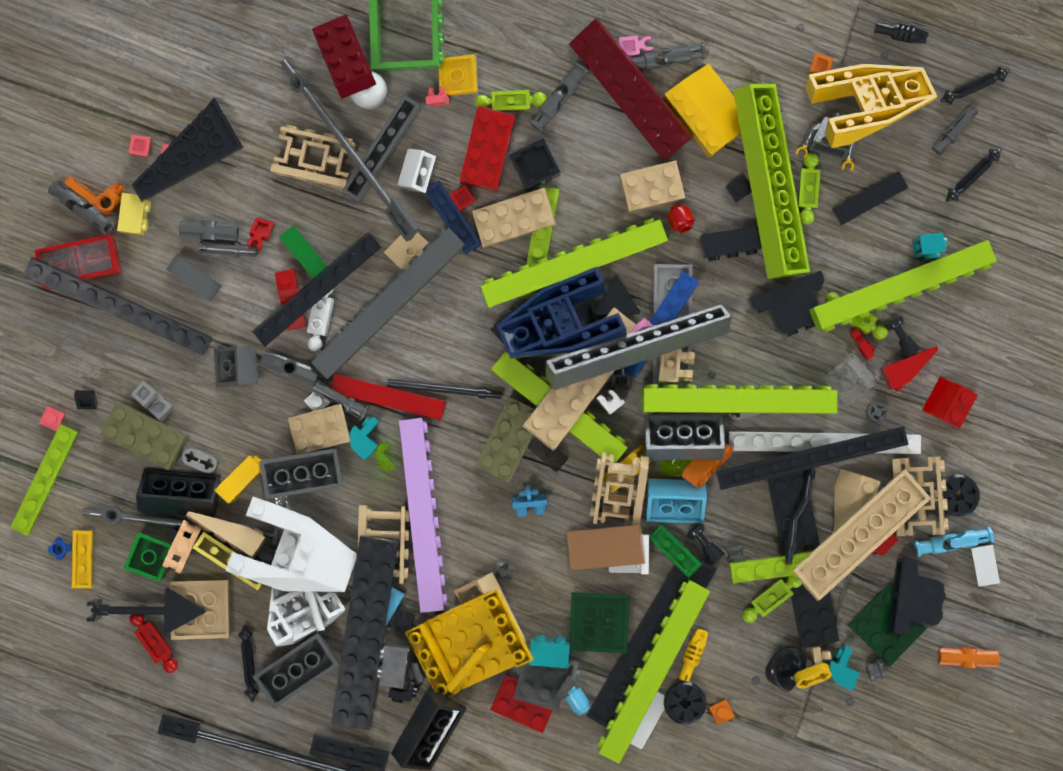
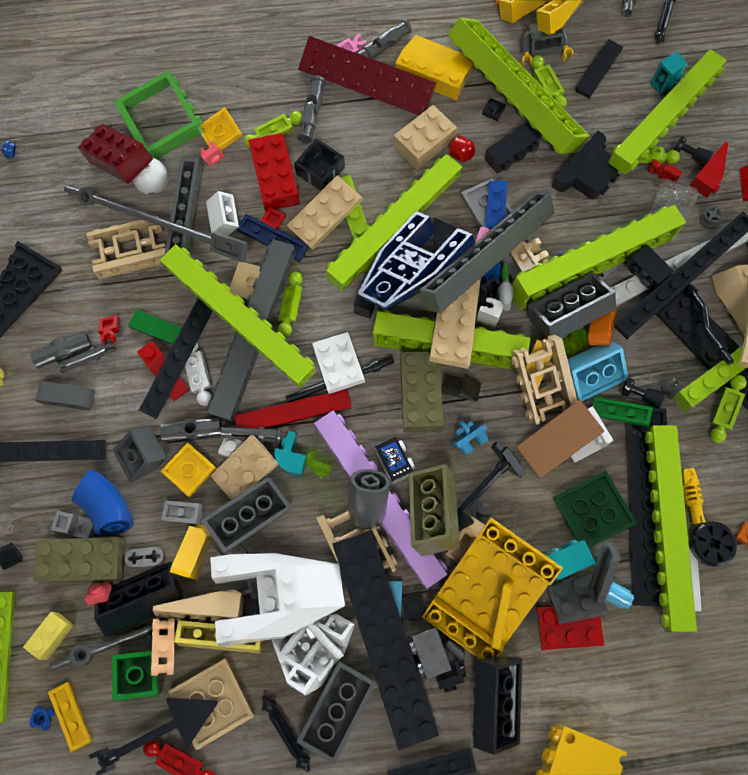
camera: 30 degrees left, 15 degrees down
(92, 486) = (48, 636): none -> light yellow brick
(147, 471) = (98, 593): none -> coral plate
(184, 398) = (102, 504): none -> blue brick
(248, 439) = (182, 512): none -> light grey hinge
(271, 402) = (188, 469): none -> yellow plate
(378, 287) = (238, 316): none -> lime brick
(408, 515) = (368, 498): none -> dark grey brick
(435, 293) = (290, 303): none -> lime plate
(450, 373) = (338, 362): none -> white plate
(452, 489) = (394, 460): none -> brick
(459, 552) = (433, 510): none -> olive brick
(473, 566) = (506, 462): none -> black piece
(633, 389) = (505, 288): none -> light grey piece
(780, 435) = (649, 268): none -> black brick

